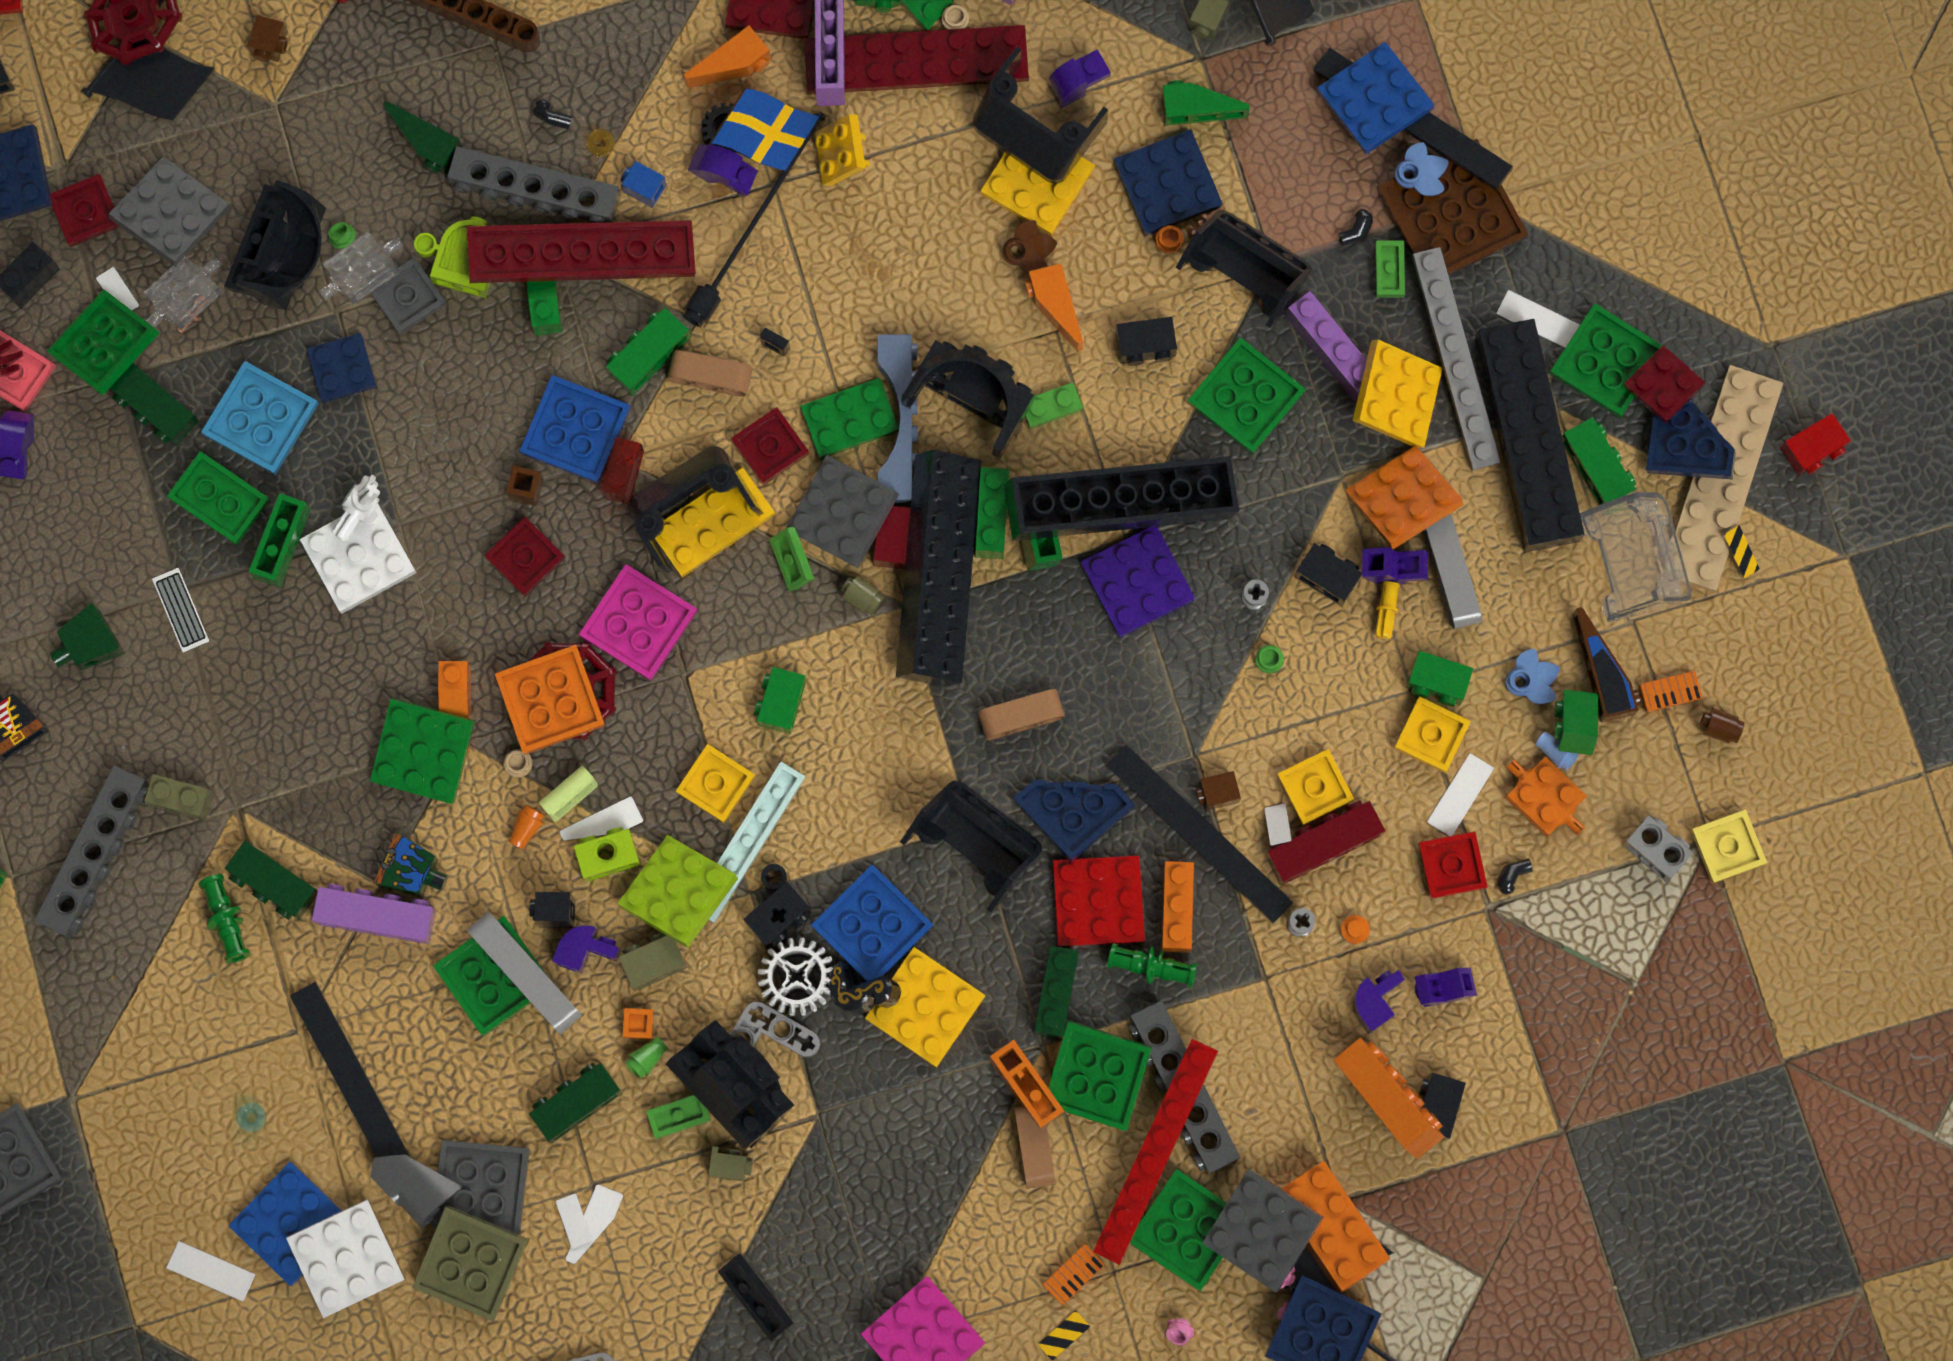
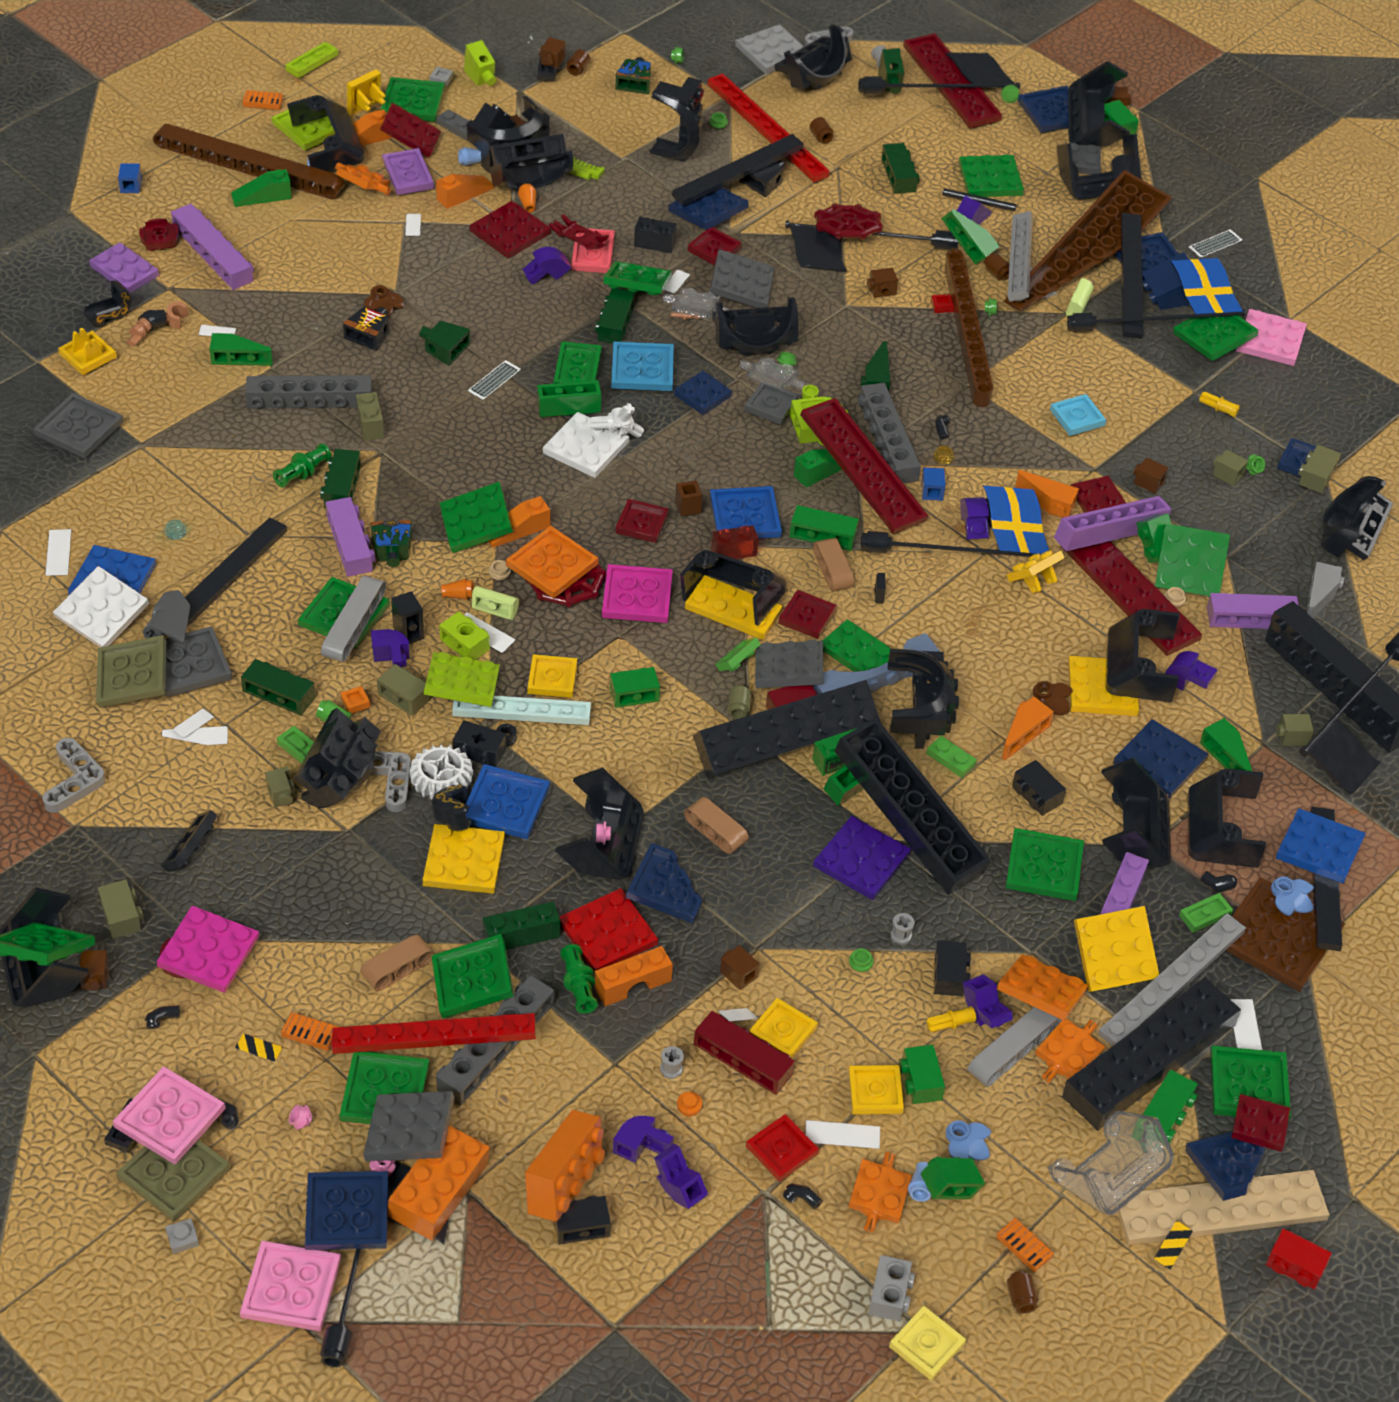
camera: 60 degrees right, 30 degrees down
(972, 842) = (603, 833): none -> bright pink plate
(1025, 1084) = (441, 928): orange slope -> none
(1199, 834) = (699, 972): black tile -> none
(1275, 189) = (1208, 835): none -> black windscreen
(1484, 513) = (1069, 1049): none -> orange plate
(1606, 676) = (996, 1196): slope -> none

